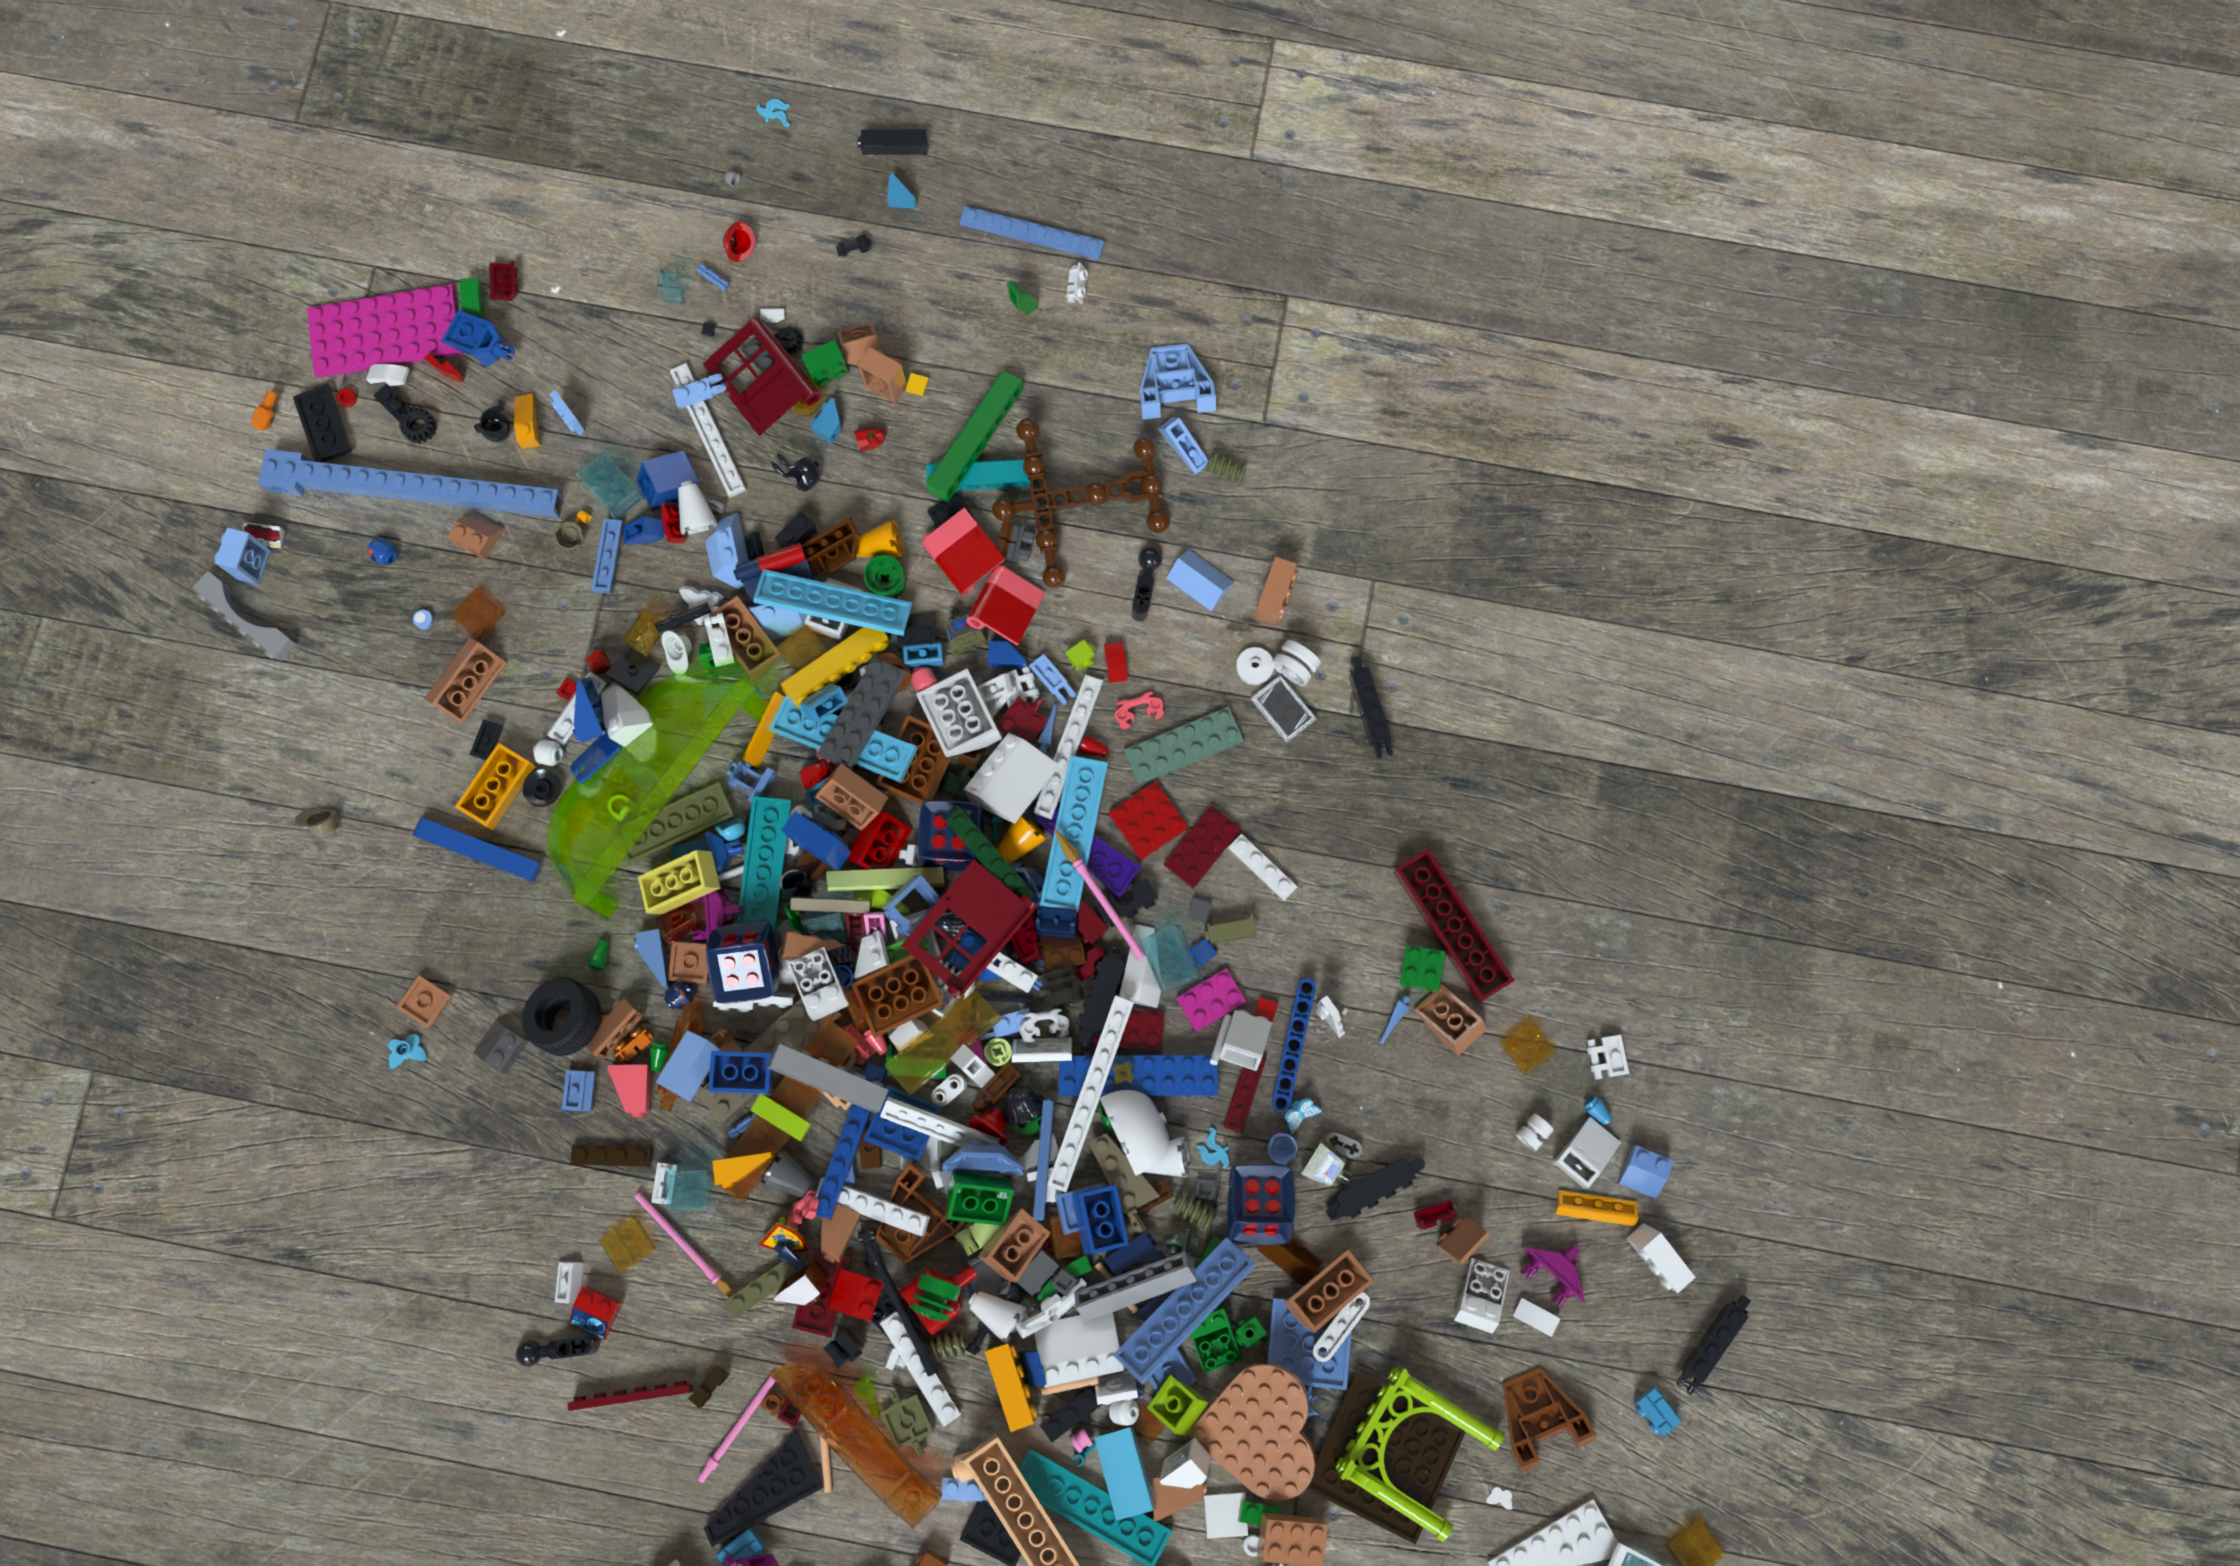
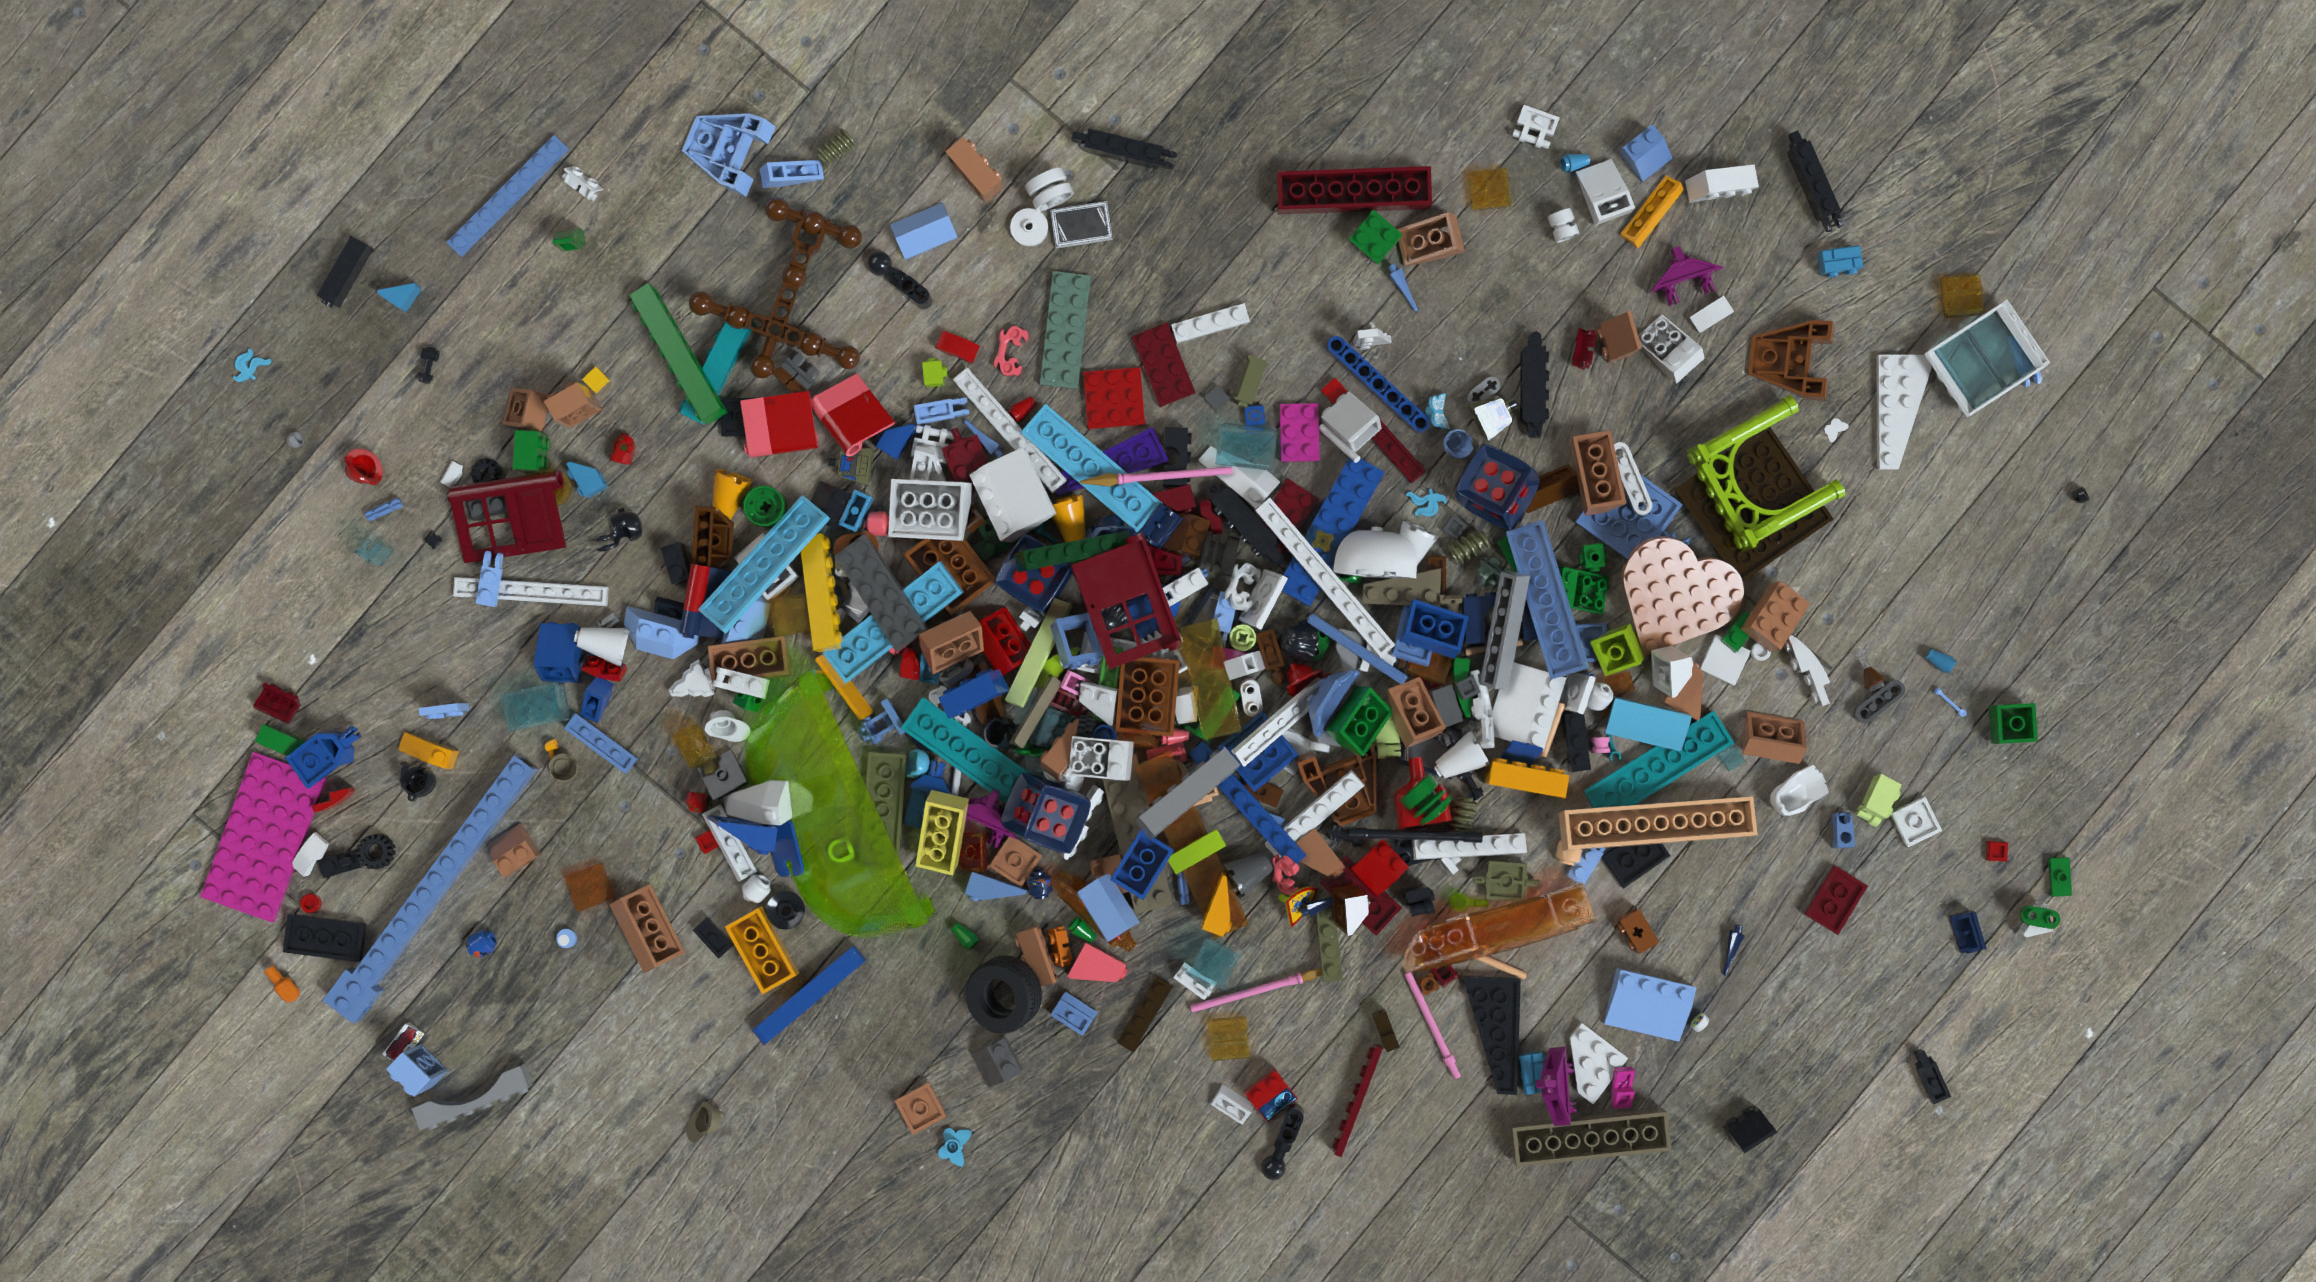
camera: 60 degrees left, 10 degrees up
(682, 618) = (701, 705): black pin -> none
(823, 702) = (852, 621): dark azure brick -> none

